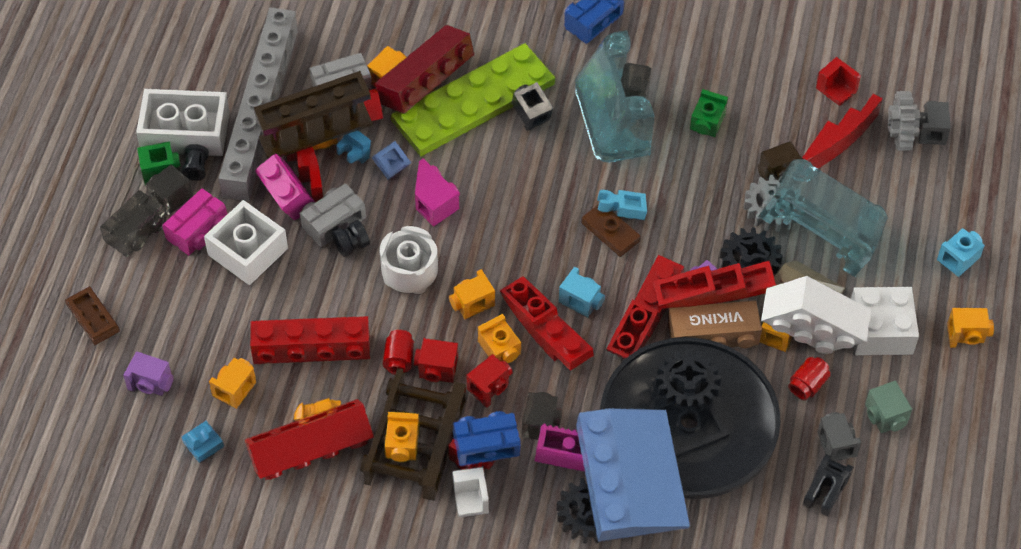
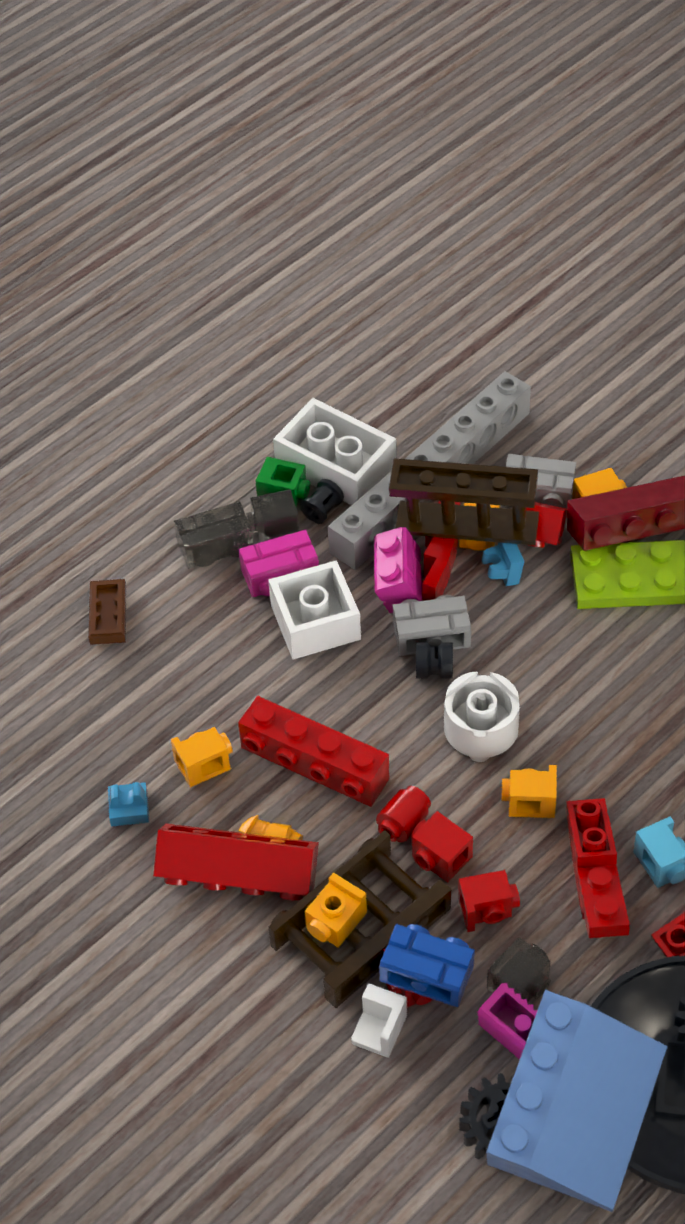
camera: 35 degrees right, 5 degrees down
(148, 374) = (118, 701): medium lavender brick -> none
(391, 160) = (538, 596): medium blue tile -> none
(434, 195) = (559, 655): dark pink slope -> none
(499, 339) = (528, 859): light orange brick -> none

